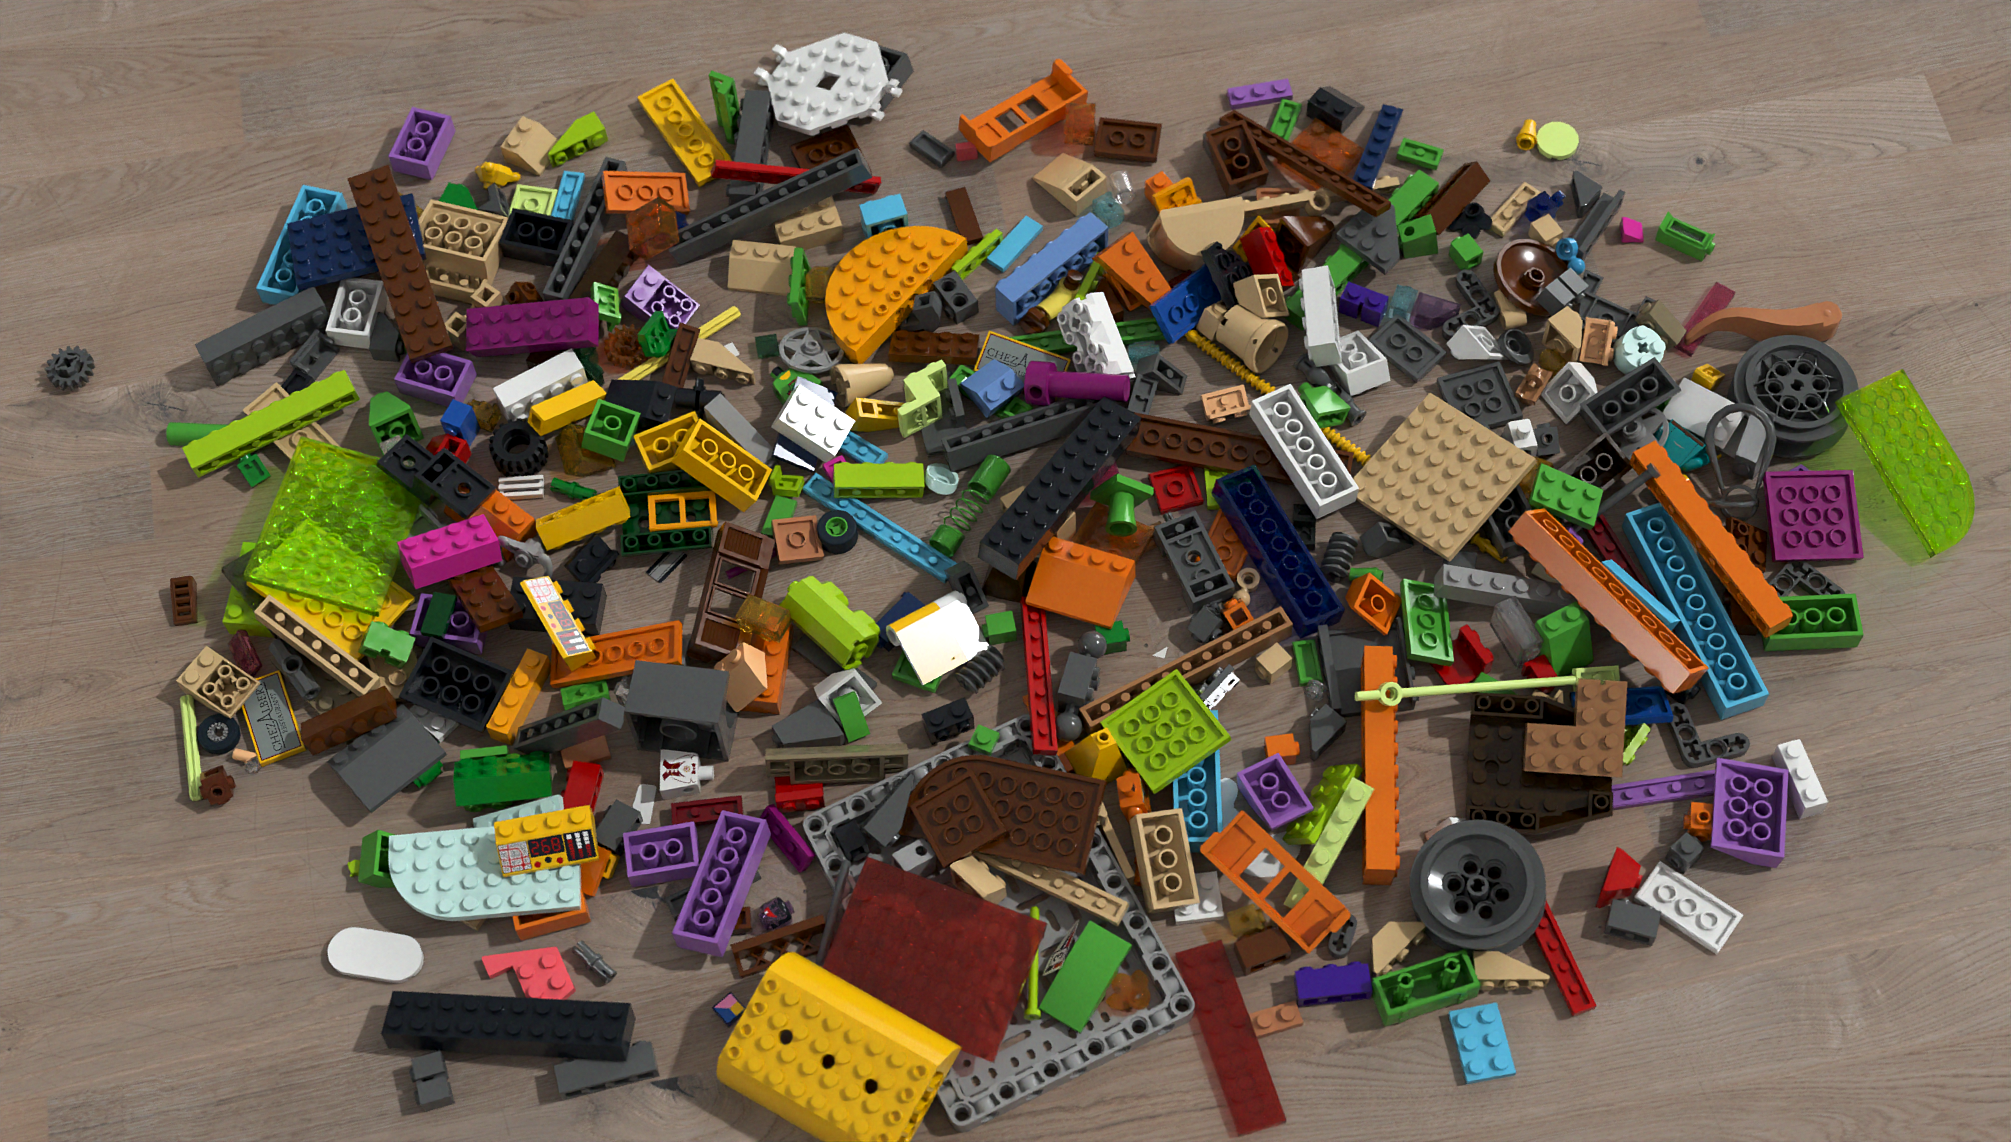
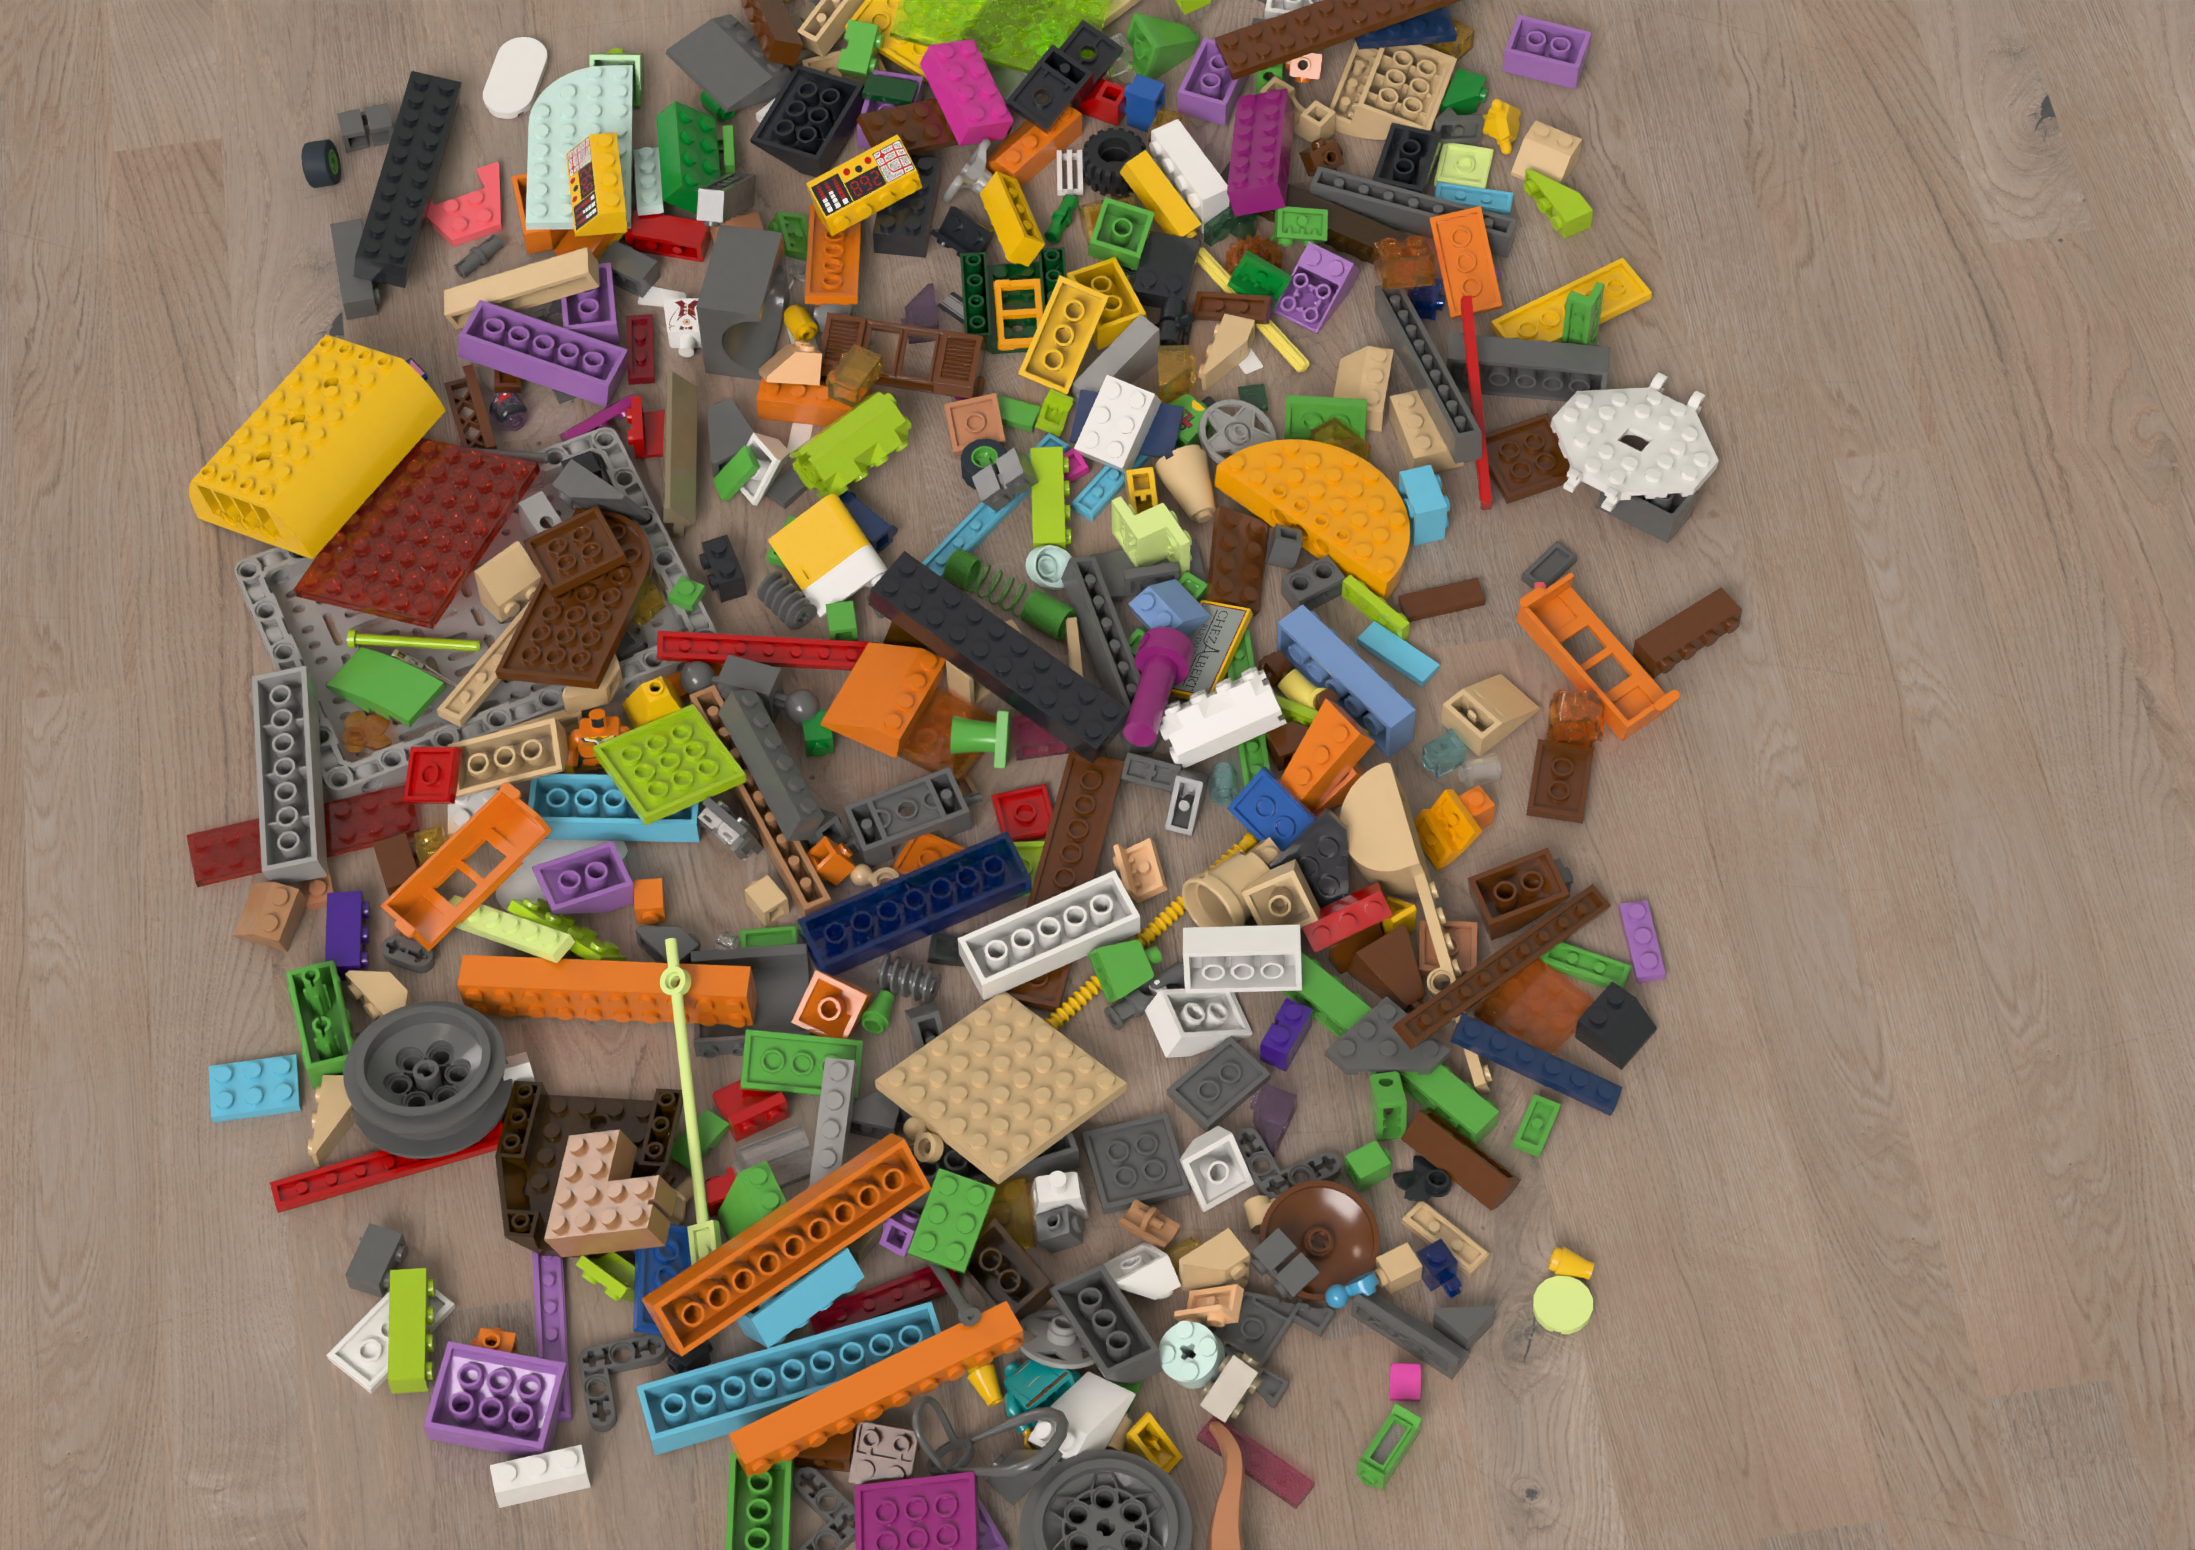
camera: 90 degrees right, 5 degrees down
(479, 1114) = (321, 163): none -> black wheel
(519, 697) = (782, 171): light orange brick -> none
(650, 905) = (525, 286): none -> tan brick
(678, 587) = (922, 313): none -> clear purple slope
(758, 394) = (1175, 372): none -> clear yellow slope
(803, 679) = (799, 435): none -> white sticker
(863, 494) = (1014, 477): none -> piece
(994, 60) = (1687, 633): none -> reddish brown brick
(1029, 456) = (1073, 645): none -> tan tile
(1164, 652) = (771, 765): none -> dark grey brick
(1180, 922) = (432, 775): none -> red tile
(1192, 1037) = (289, 776): none -> light grey brick
(1319, 1048) = (271, 915): none -> medium nougat slope
(1403, 302) = (1291, 1079): clear light blue brick -> none
(1488, 528) = (927, 1146): none -> tan plate
(1516, 346) = (1211, 1212): dark grey hat -> none
(1620, 878) = (431, 1242): red slope -> none
(1685, 852) = (456, 1325): dark grey brick -> none
(1696, 883) = (410, 1330): none -> lime brick

